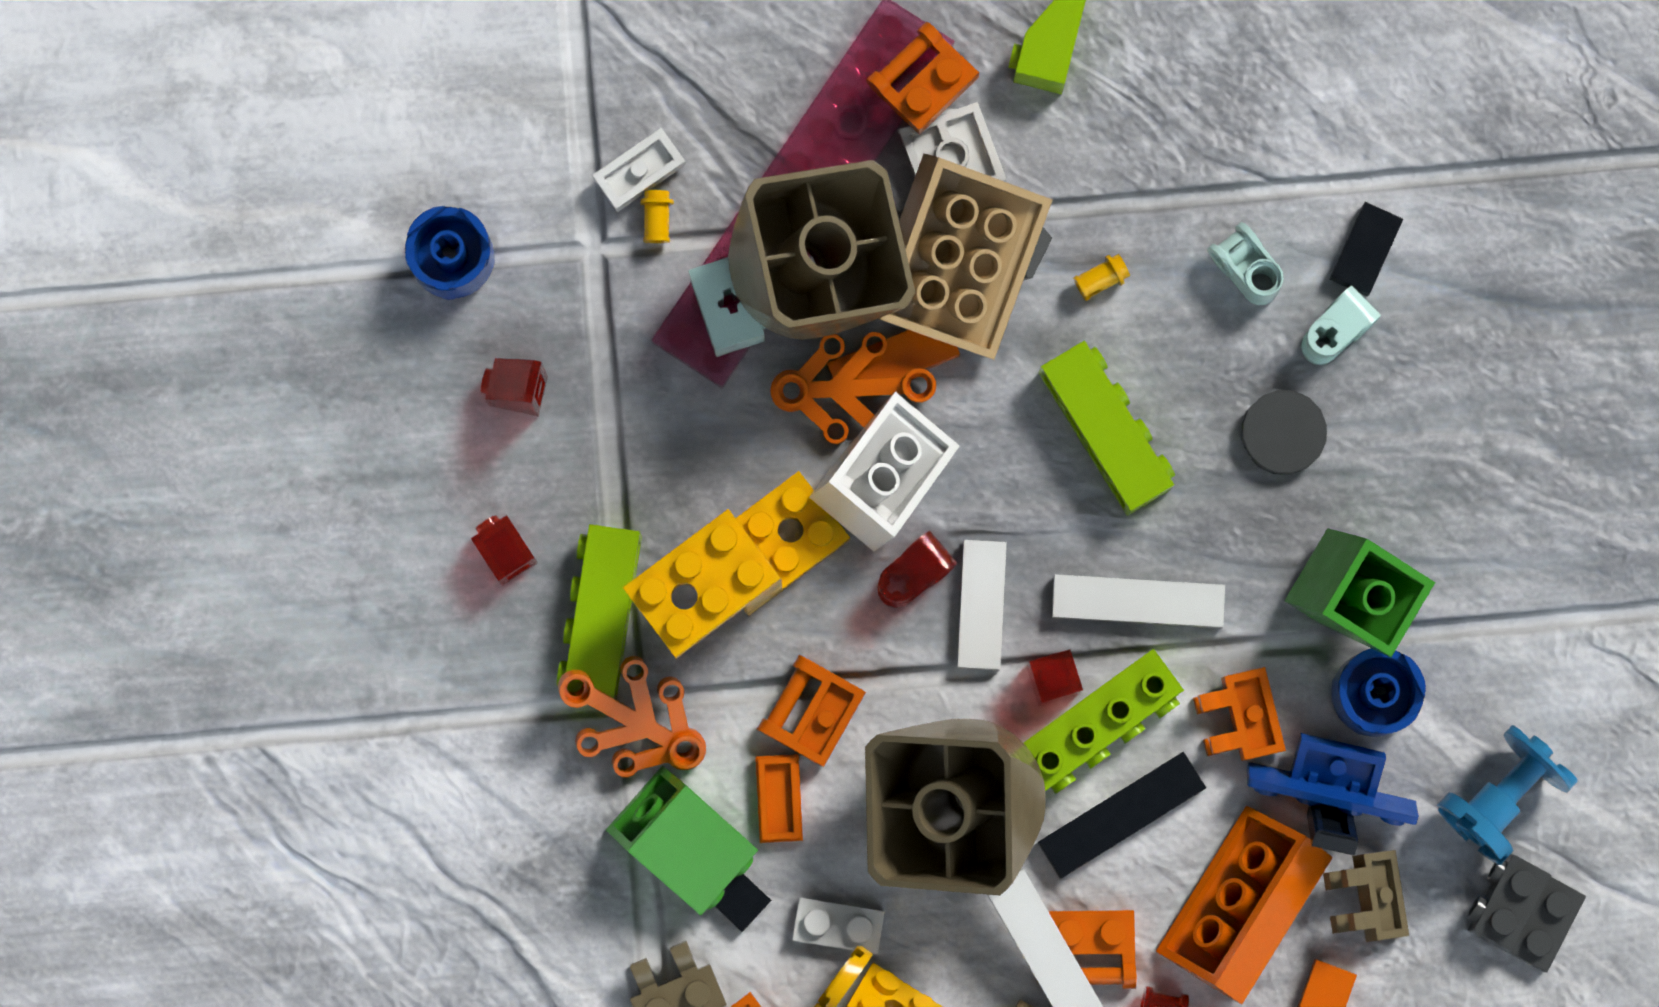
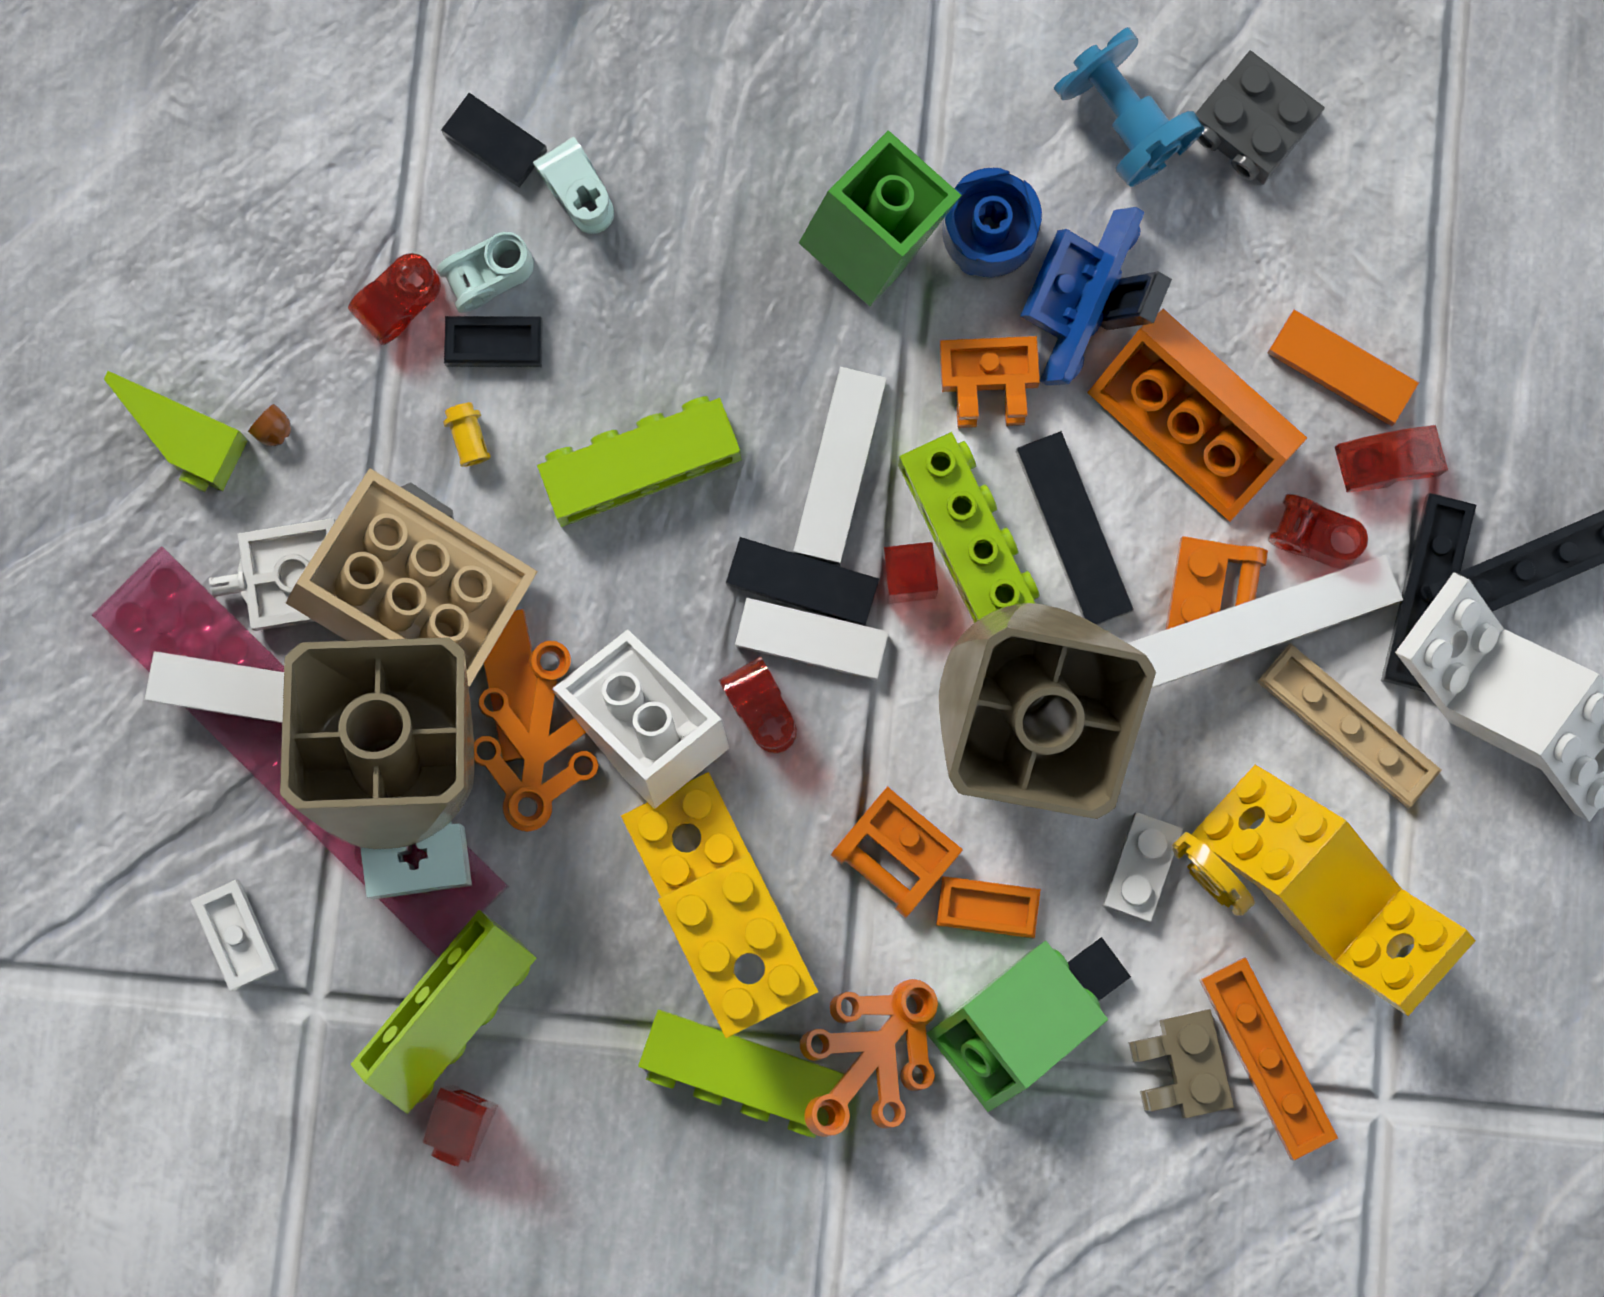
camera: 75 degrees left, 0 degrees up
(461, 232) = (259, 1162): blue brick -> none
(503, 548) = (645, 1172): clear red brick -> none
(606, 355) = (443, 1012): none -> lime brick
(656, 216) = (293, 924): yellow pin -> none
(842, 109) = (216, 687): none -> white tile
(930, 89) = (211, 580): orange plate -> none
(1030, 588) = (802, 581): none -> black tile
(1075, 111) = (271, 427): none -> dark orange hinge
(1188, 283) = (493, 341): none -> black tile
(1204, 189) = (392, 301): none -> clear red piece
(1284, 432) = (681, 269): dark grey tile -> none
(1379, 897) = (1213, 267): dark tan plate -> none

